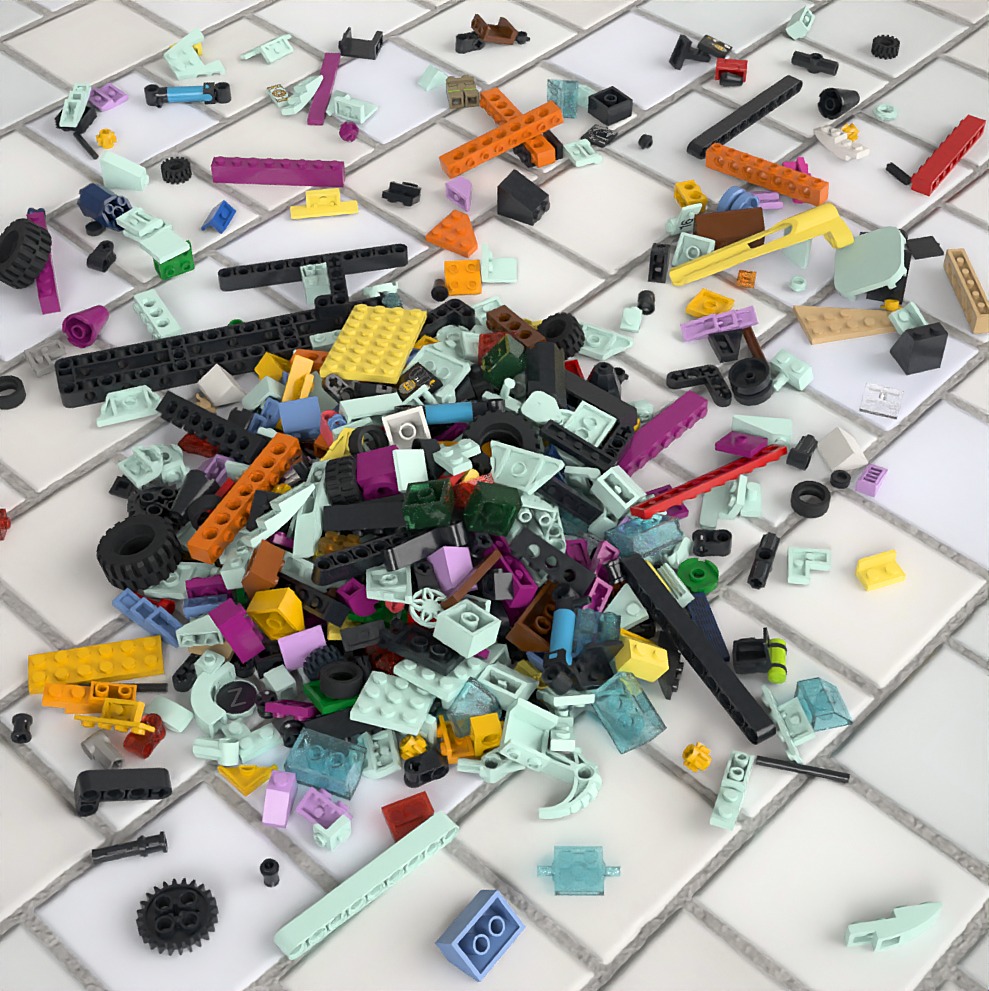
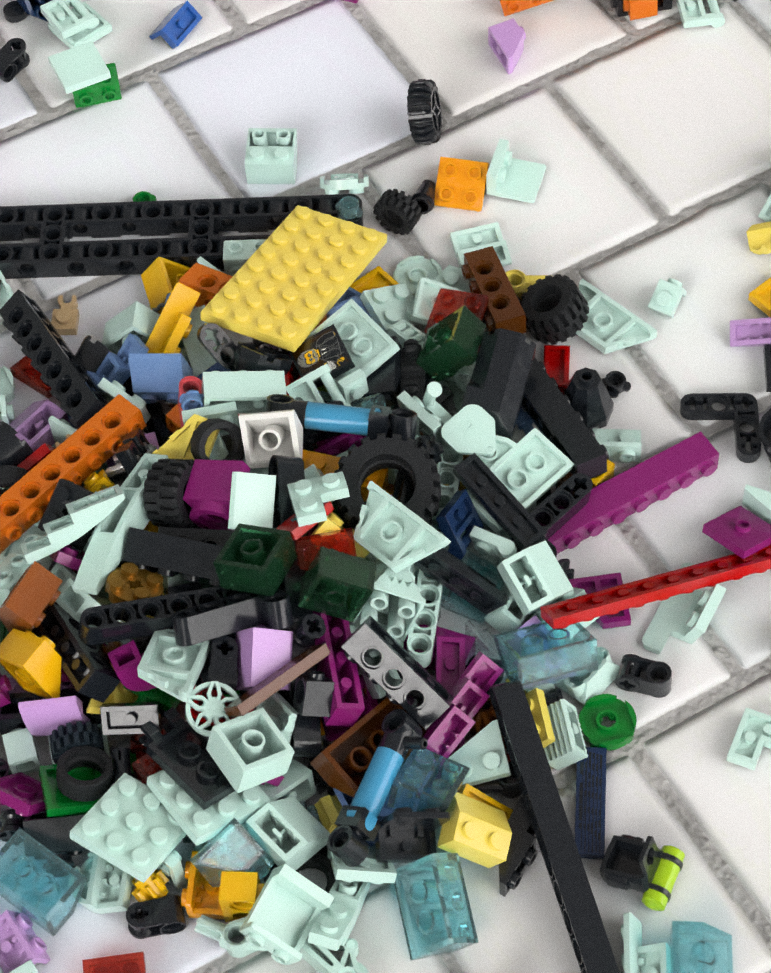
camera: 20 degrees right, 10 degrees up
(155, 315) = (47, 167): light aqua brick -> none
(220, 387) = (93, 293): white slope -> none
(289, 269) = (233, 127): black beam -> none
(323, 203) = (317, 29): light yellow bracket -> none
(337, 302) = (267, 196): black beam -> none
(406, 193) = (430, 31): black slope -> none
(422, 236) = (424, 111): none -> black gear
(427, 292) = (397, 211): none -> black tyre
(449, 313) = (421, 239): black beam -> none
(454, 234) = (478, 109): orange plate -> none
(521, 199) = (584, 72): black slope -> none
(614, 571) = (481, 701): black bush -> none
(646, 302) = (697, 274): black wheel -> none
(659, 259) = (739, 203): black torso -> none
(752, 501) = (726, 620): light aqua tile -> none
(763, 561) = (695, 732): black piece -> none

